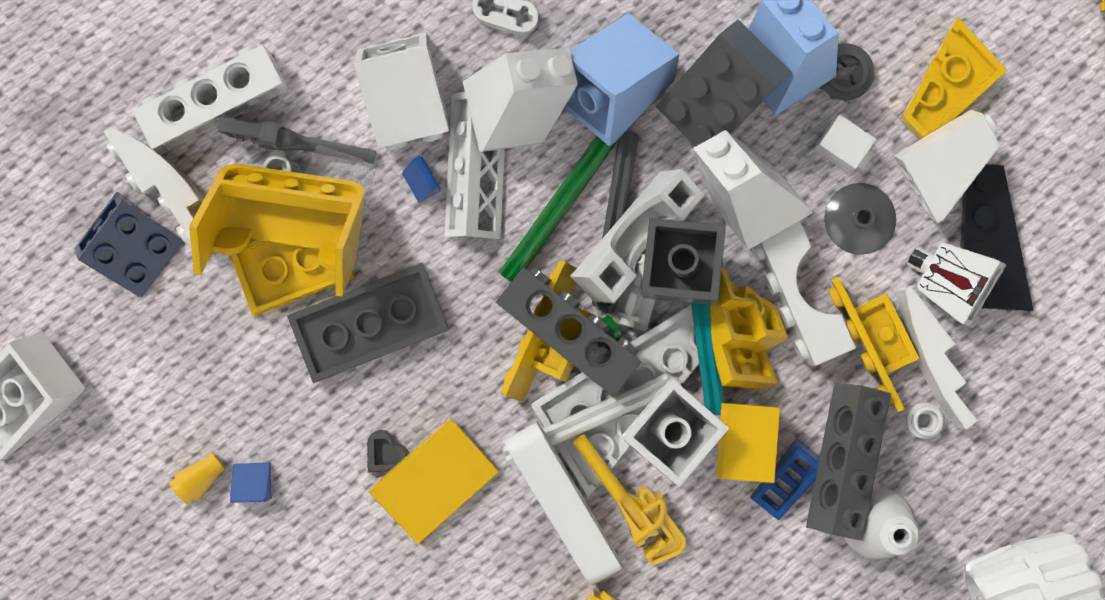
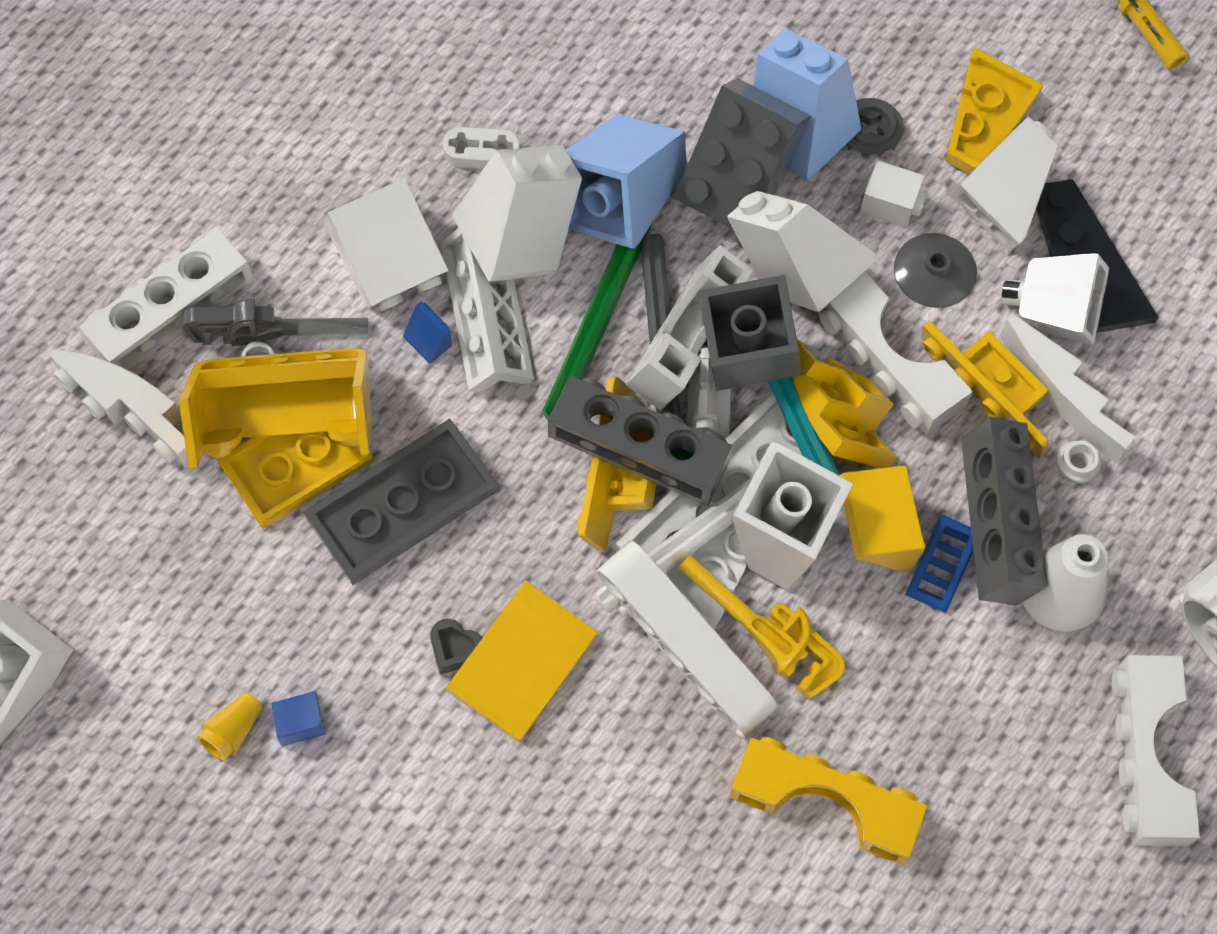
camera: 20 degrees left, 20 degrees down
(127, 246) = (97, 479): dark blue bracket -> none

